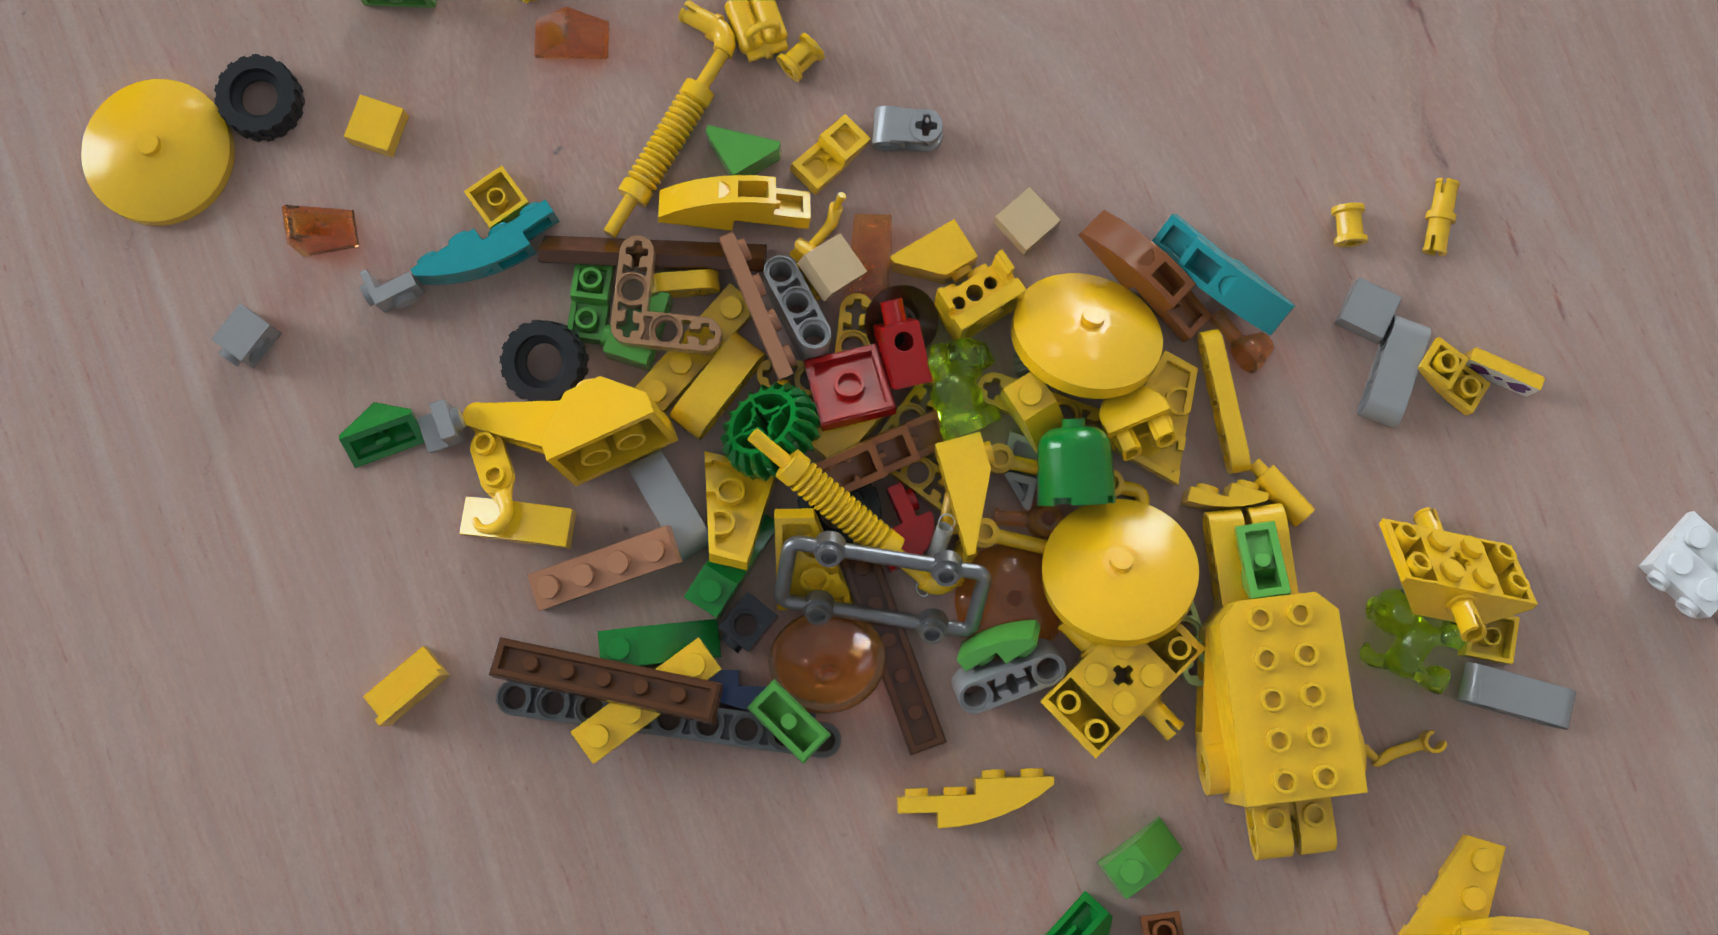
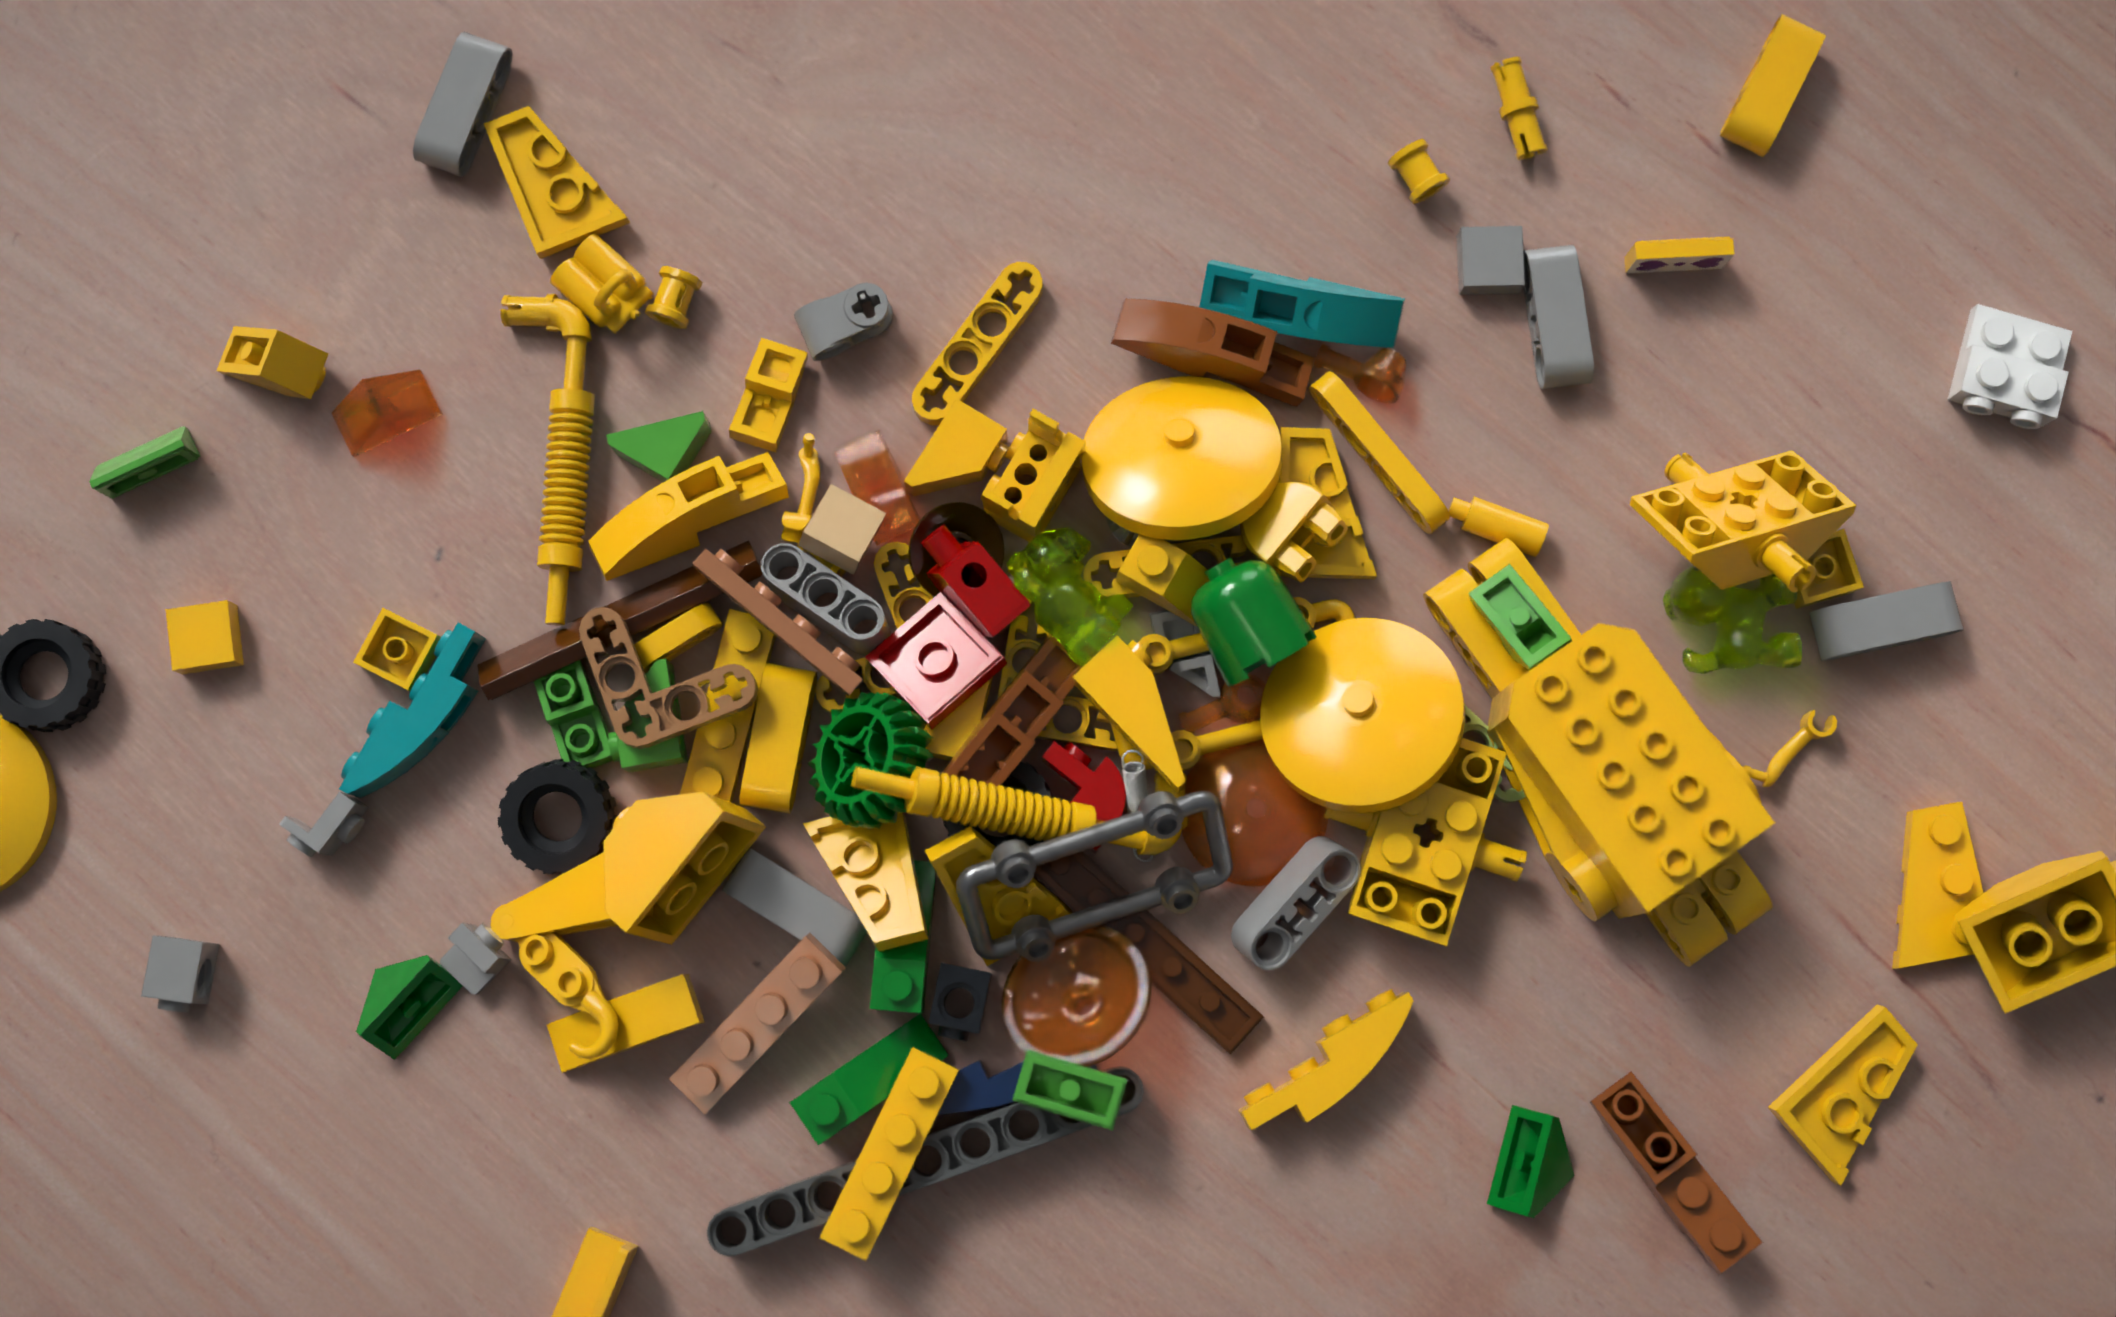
camera: 25 degrees left, 0 degrees up
(319, 229) = (202, 796): clear orange slope -> none
(607, 680) = (831, 1154): reddish brown tile -> none
(986, 187) = (973, 340): none -> yellow beam
(1006, 640) = (1271, 862): bright green slope -> none
(1026, 221) = (1041, 356): tan piece -> none
(1140, 858) = (1556, 1034): bright green slope -> none
(1234, 495) = (1448, 557): yellow slope -> none
(1451, 377) = (1627, 291): yellow slope -> none
(1626, 289) = (1772, 85): none -> yellow beam

